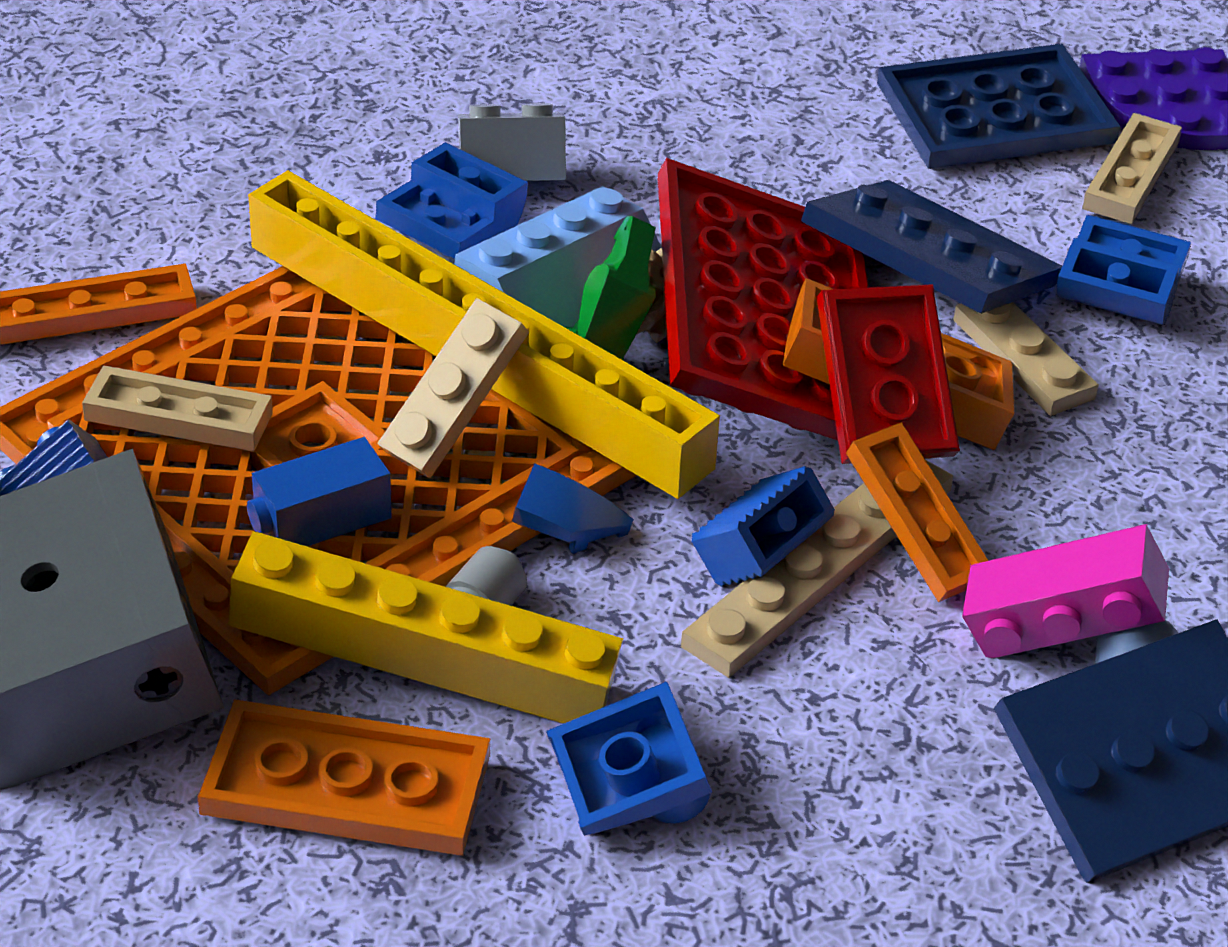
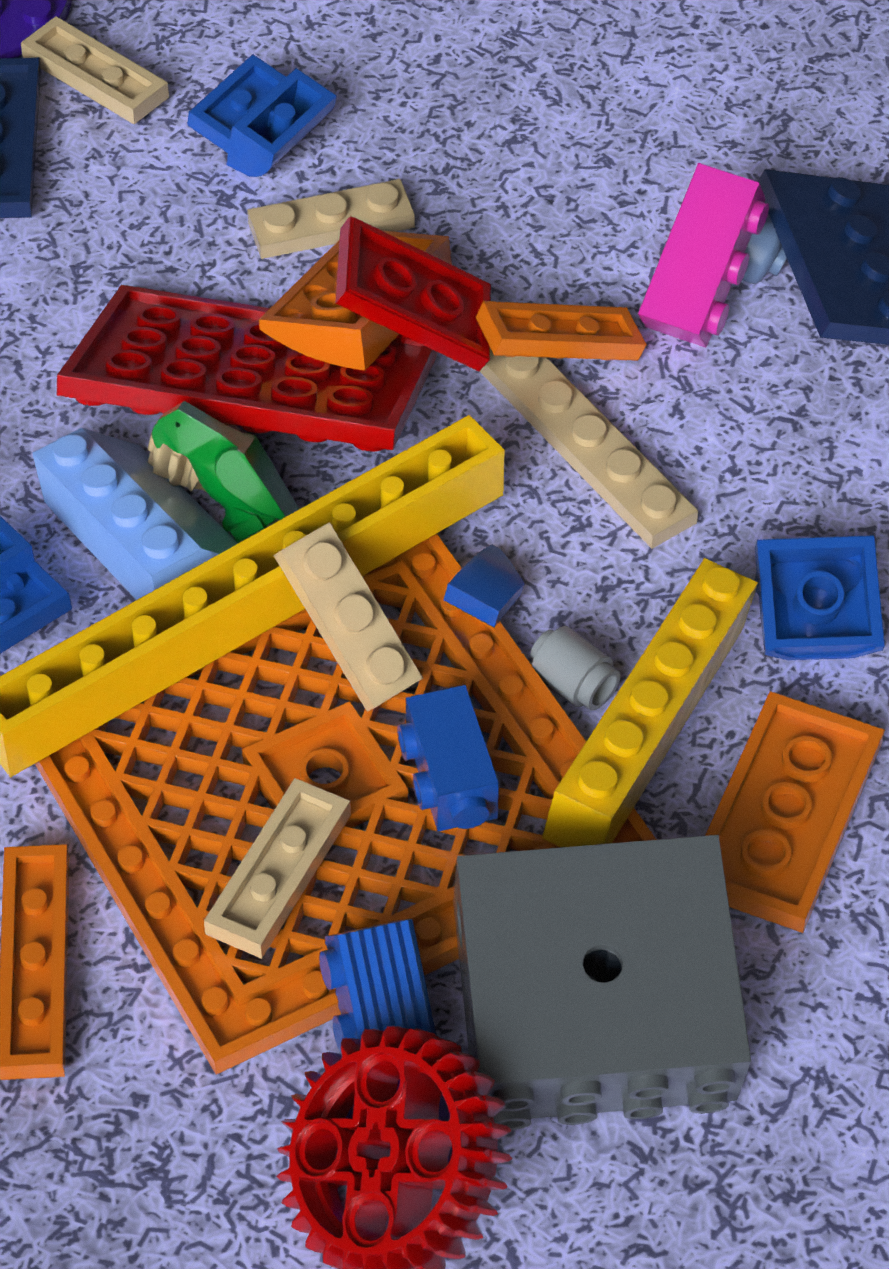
camera: 75 degrees left, 10 degrees up
(763, 526) = (549, 445): blue brick -> none
(932, 245) = (182, 234): dark blue plate -> none

